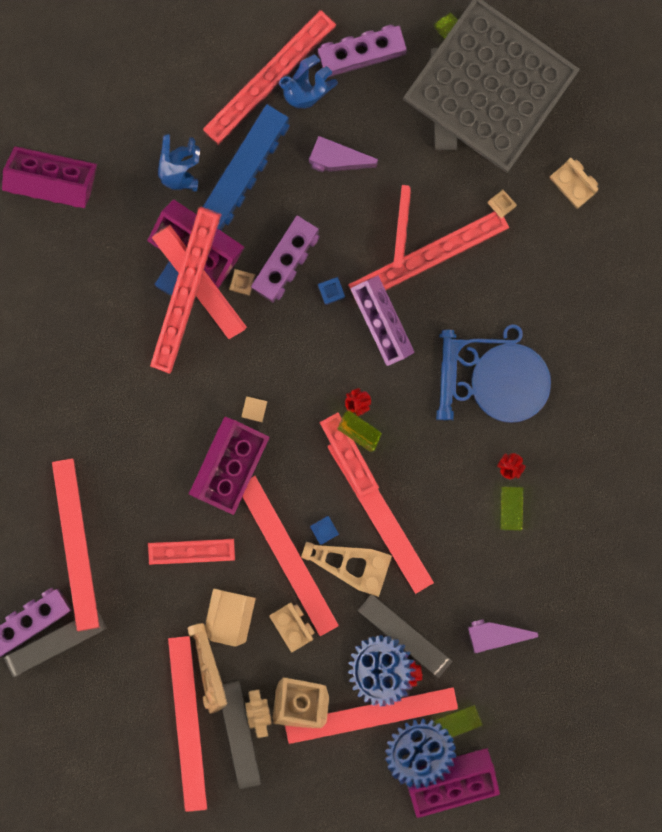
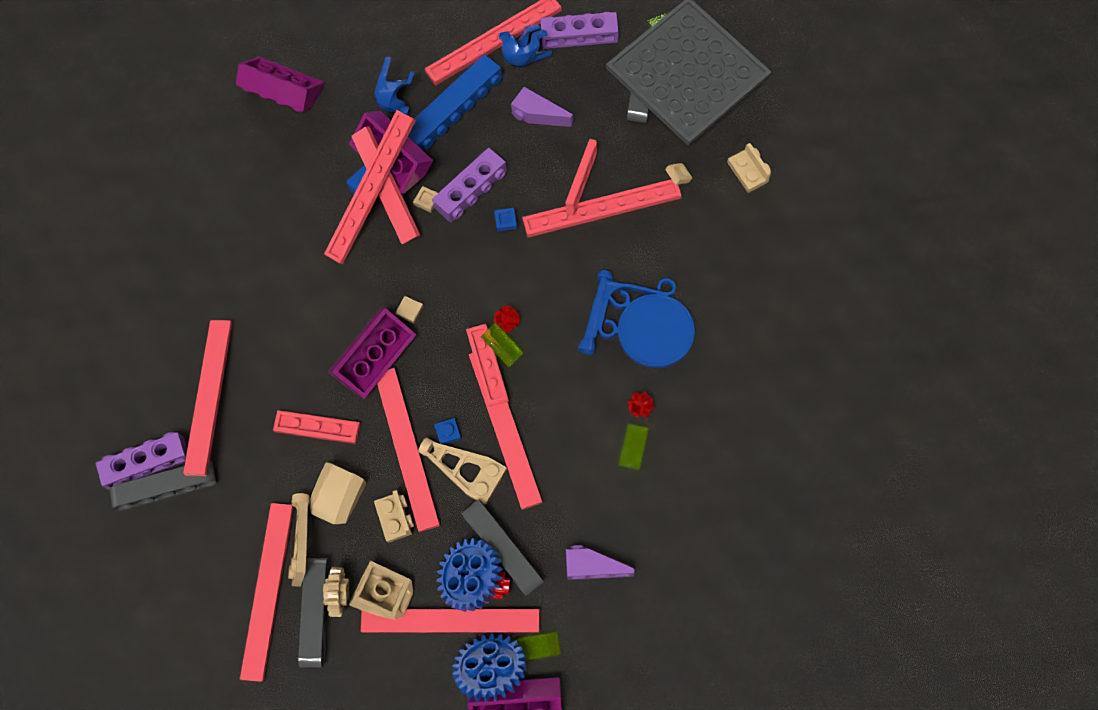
camera: 15 degrees right, 15 degrees down
(382, 320) = (545, 249): medium lavender brick -> none

